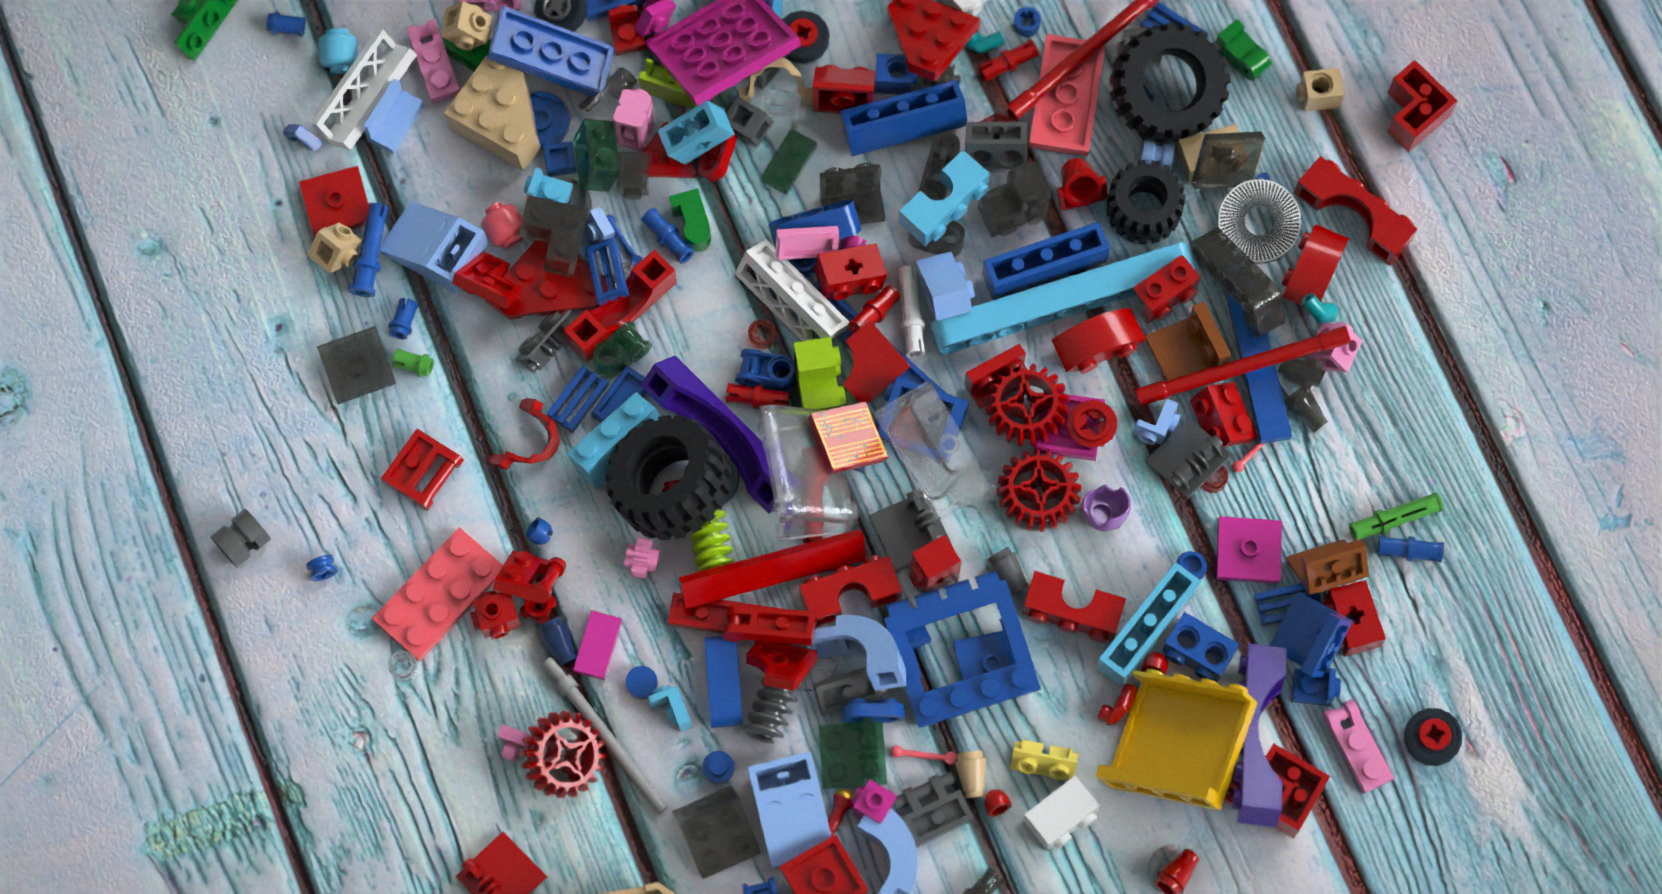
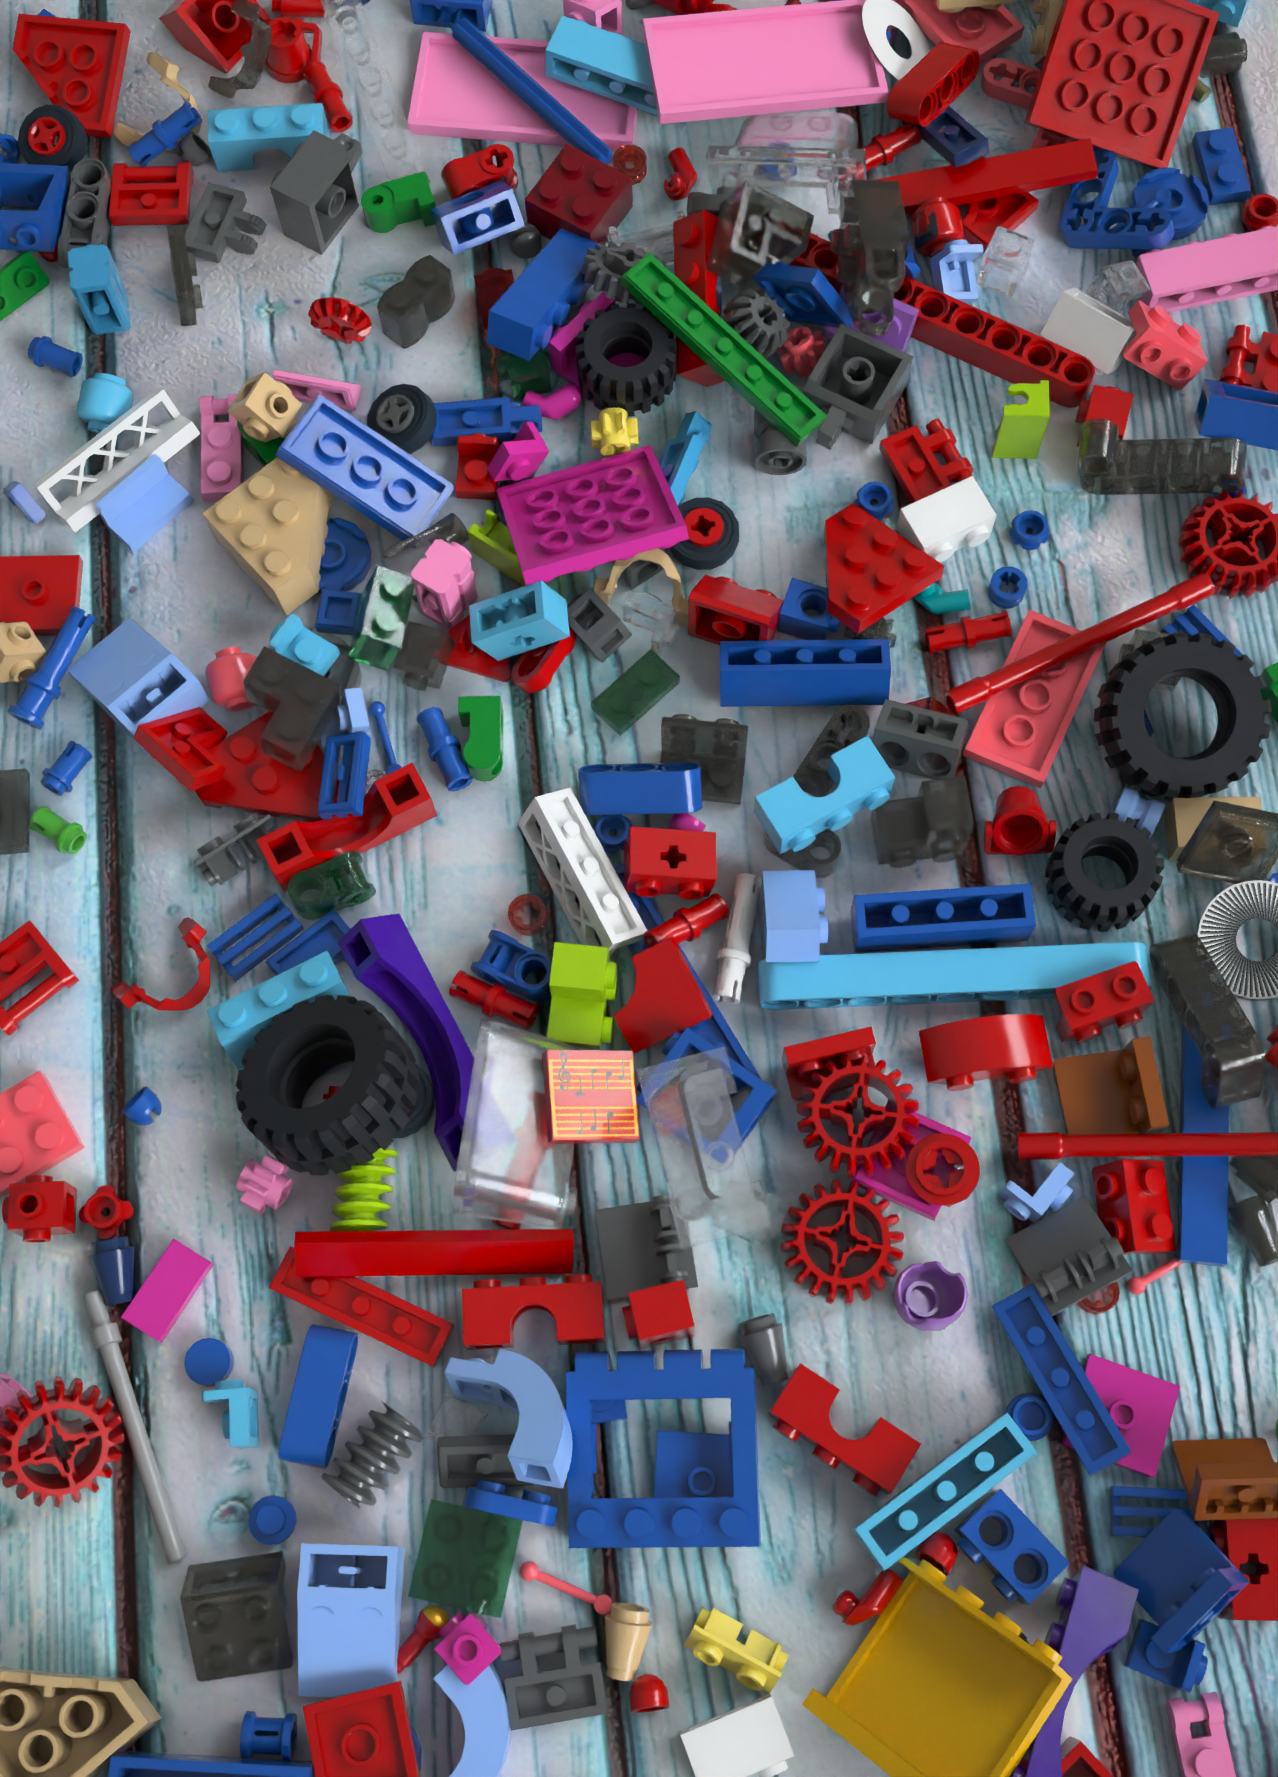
camera: 20 degrees right, 0 degrees up
(520, 572) = (92, 1159): red plate -> none
(770, 625) = (403, 1338): red plate -> none
(782, 663) = (402, 1397): red tile -> none
(806, 242) = (619, 806): bright pink tile -> none
(1204, 535) = (1061, 1380): none -> blue plate

